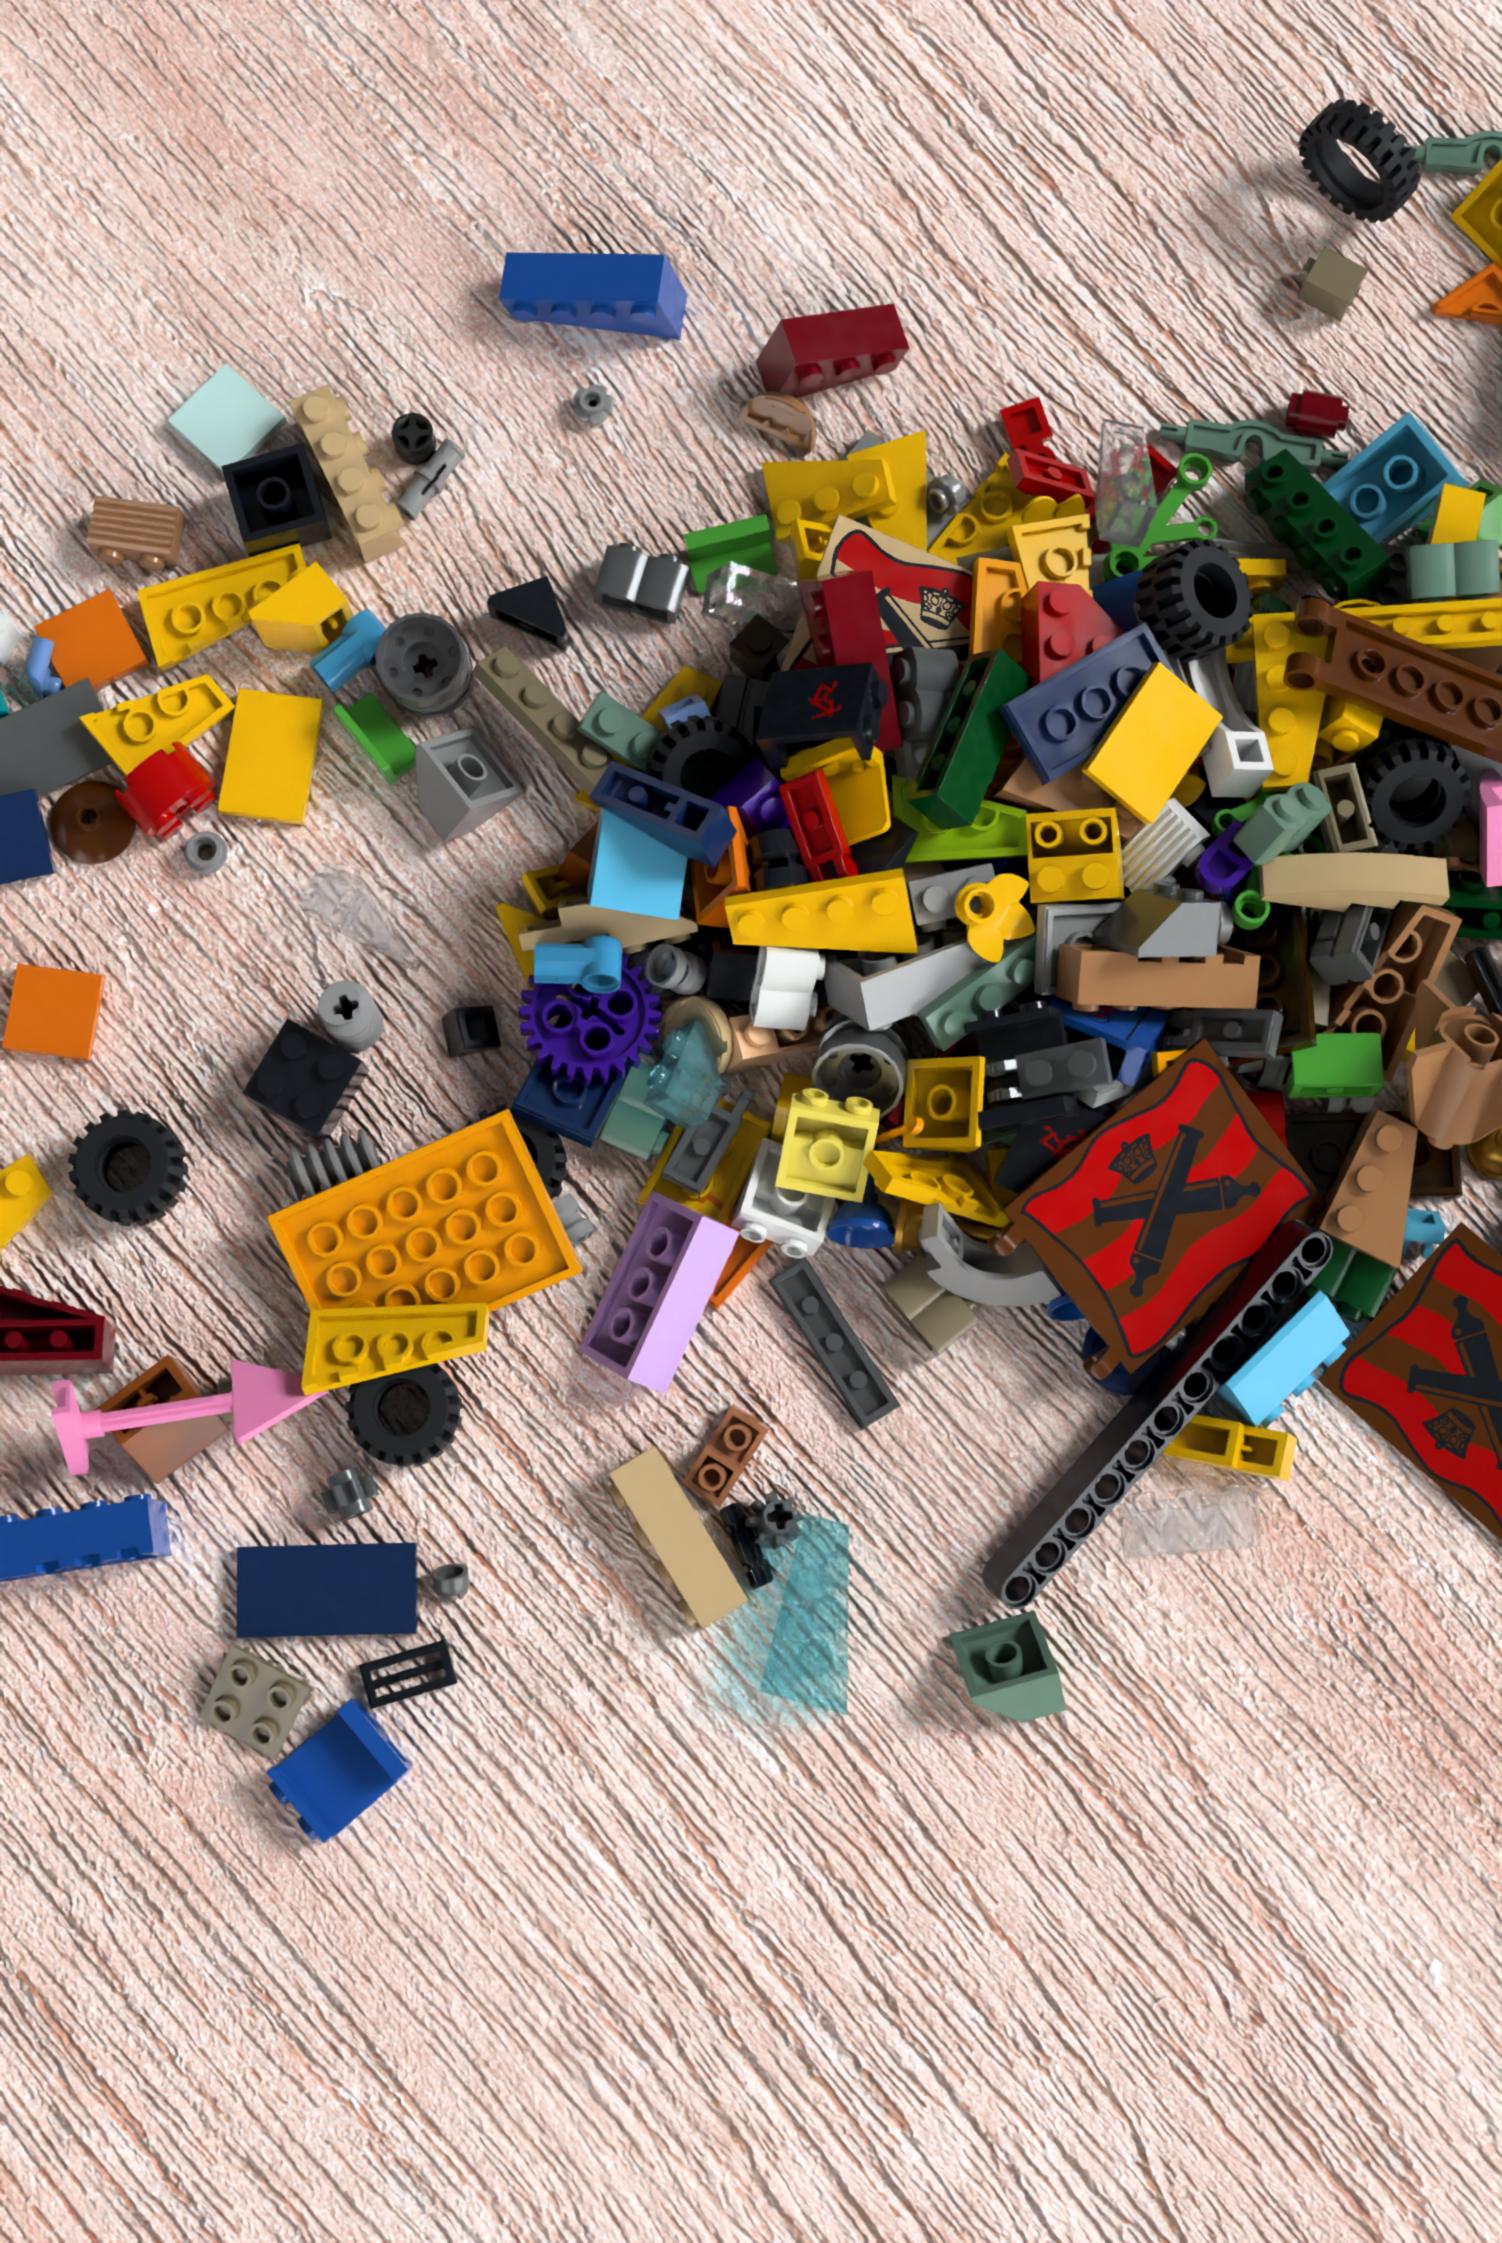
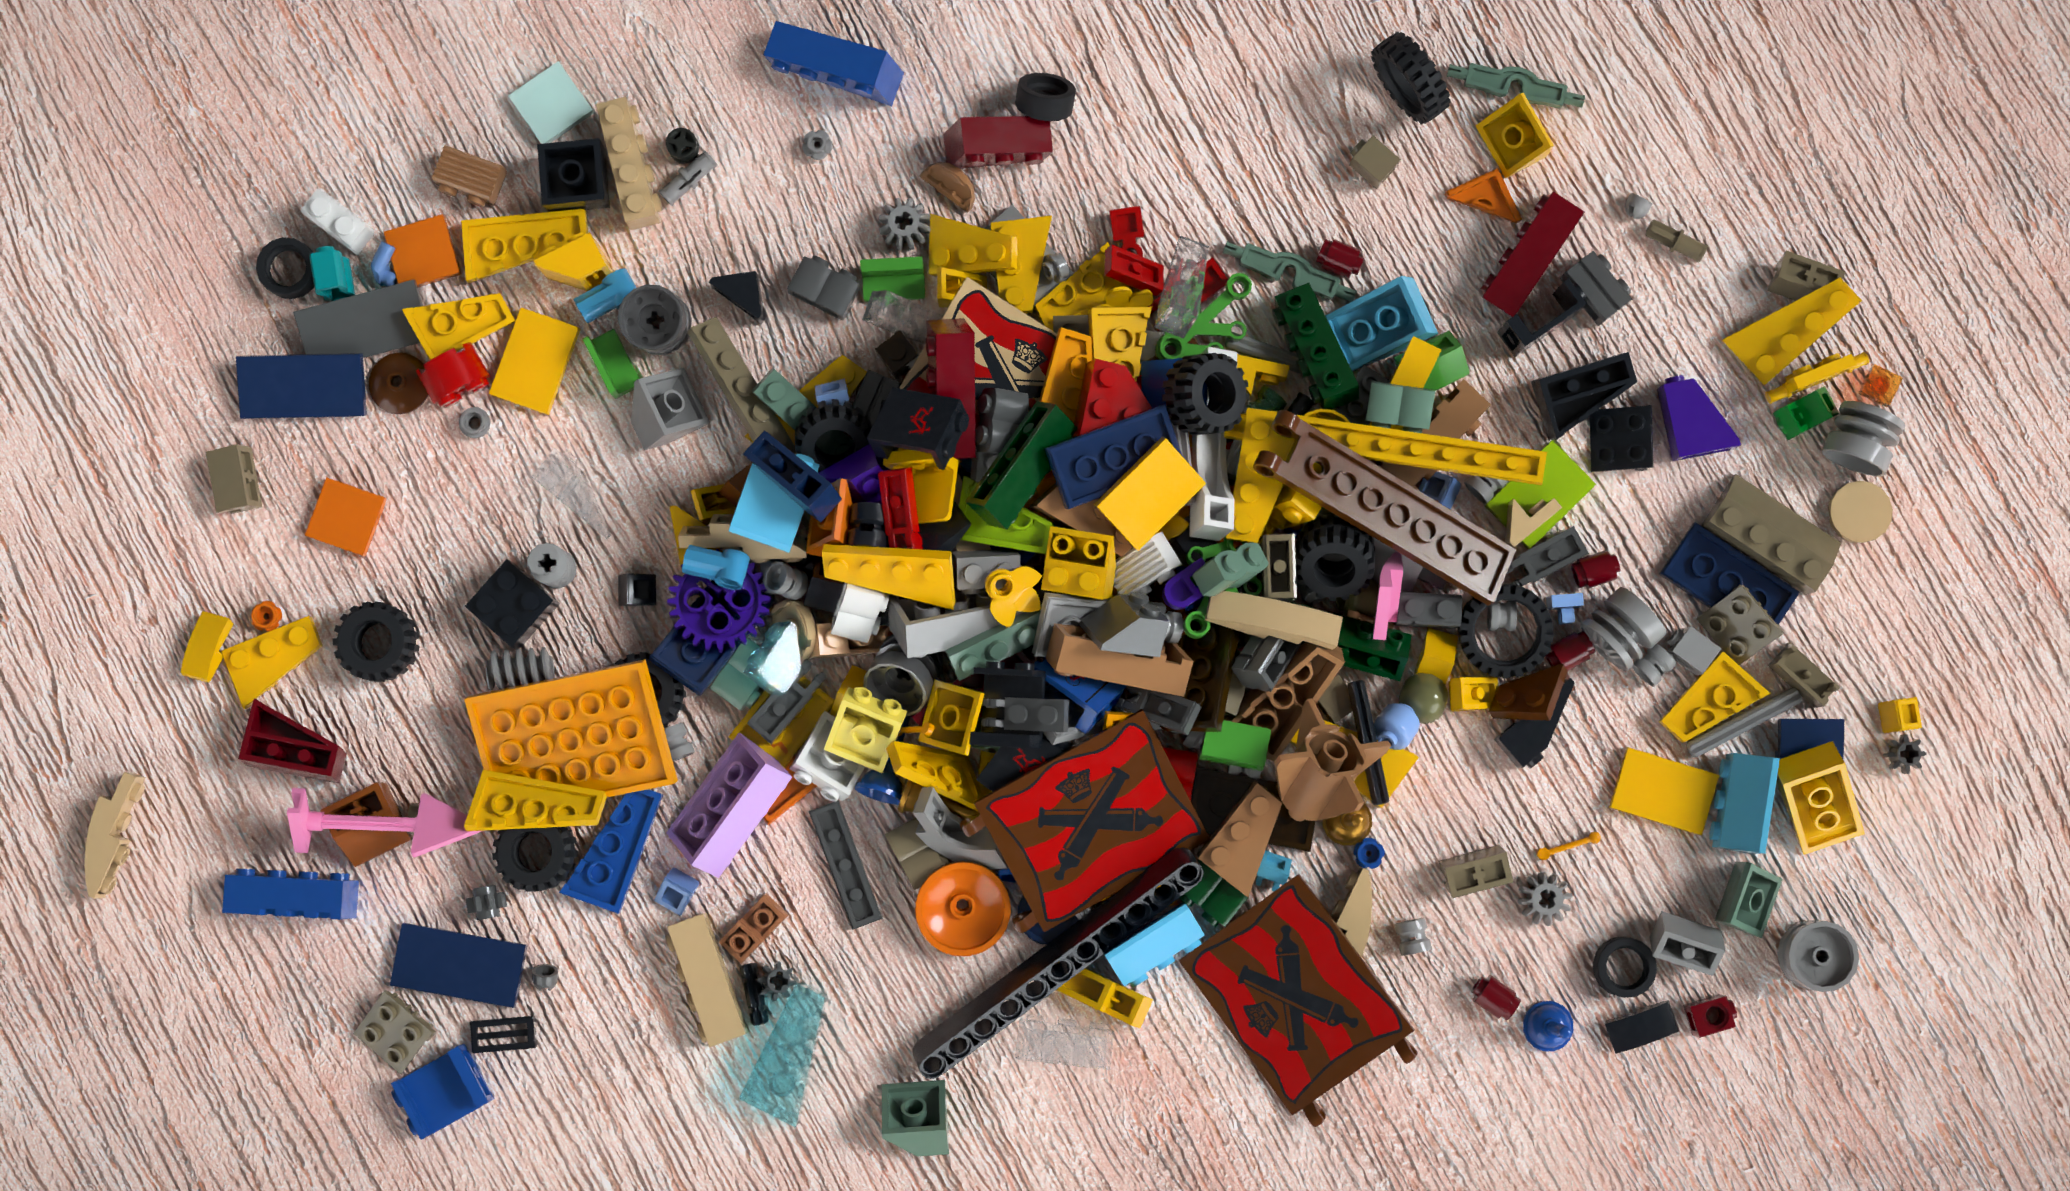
camera: 15 degrees right, 5 degrees up
(513, 1398) = (612, 860): none -> blue wing
(609, 1427) = (676, 891): none -> medium blue slope
(731, 465) = (897, 216): none -> light grey gear
(883, 280) = (1045, 96): none -> black tyre
(1041, 1371) = (967, 929): none -> orange dish

